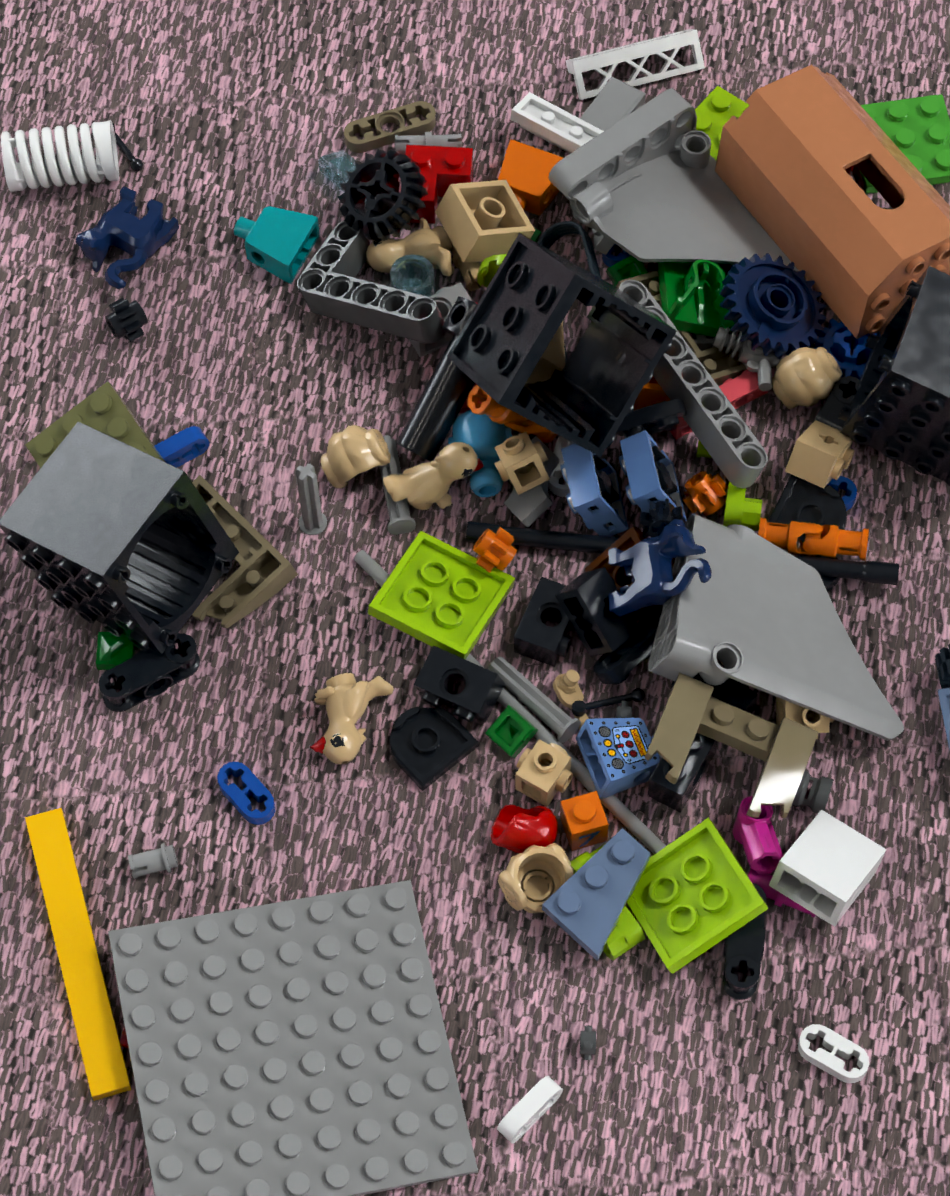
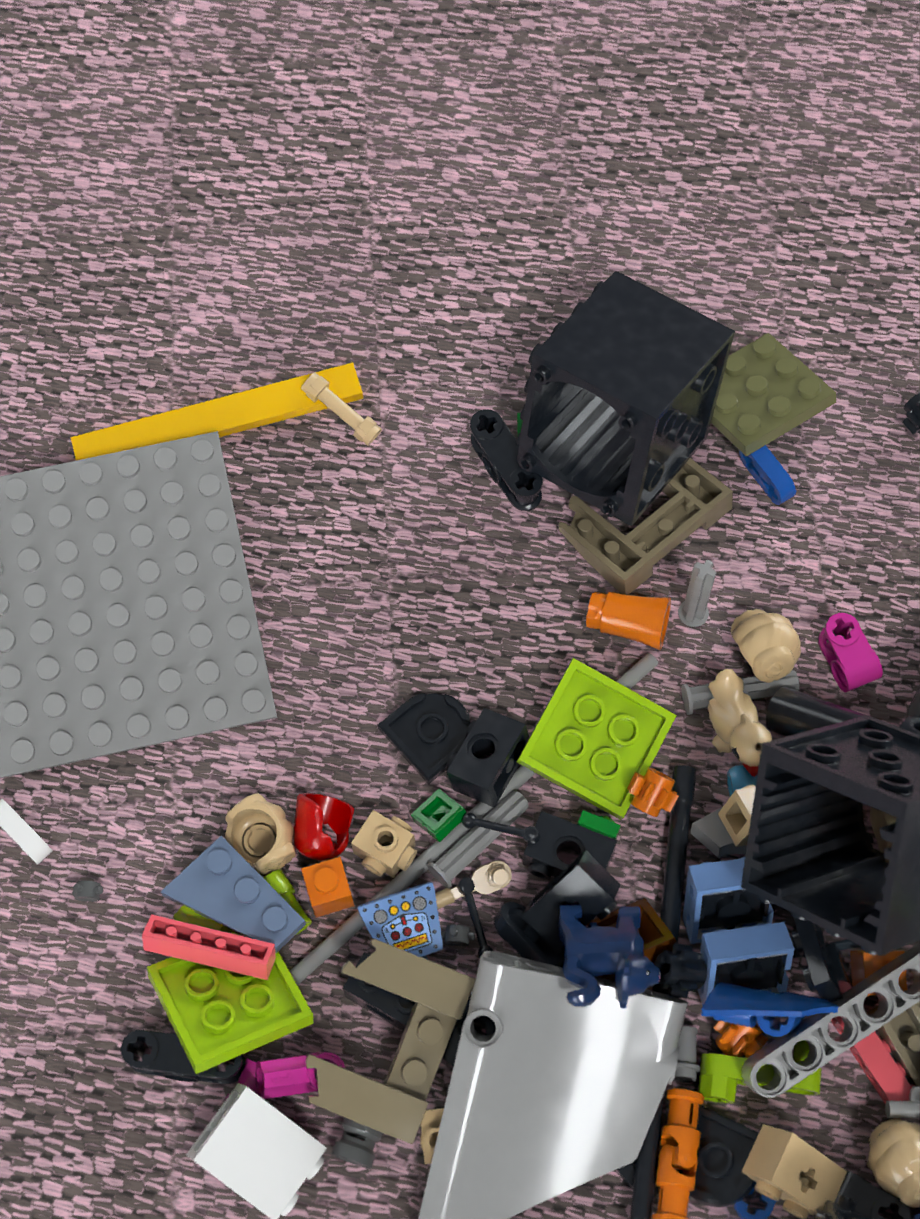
camera: 90 degrees right, 5 degrees up
(59, 844) = (317, 388): none -> tan bar
(153, 861) = (305, 481): light grey pin -> none
(252, 787) = (370, 551): blue beam -> none
(321, 565) = (630, 617): none -> orange plant
(344, 706) = (465, 644): tan animal -> none
(364, 395) = (850, 658): none -> dark pink piece
(523, 595) = (599, 824): none -> green tile
(537, 644) = (530, 833): none -> black hinge
(649, 910) = (209, 947): none -> coral piece
(696, 447) = (748, 1006): none -> blue panel
(828, 1061) = (46, 1146): white beam -> none

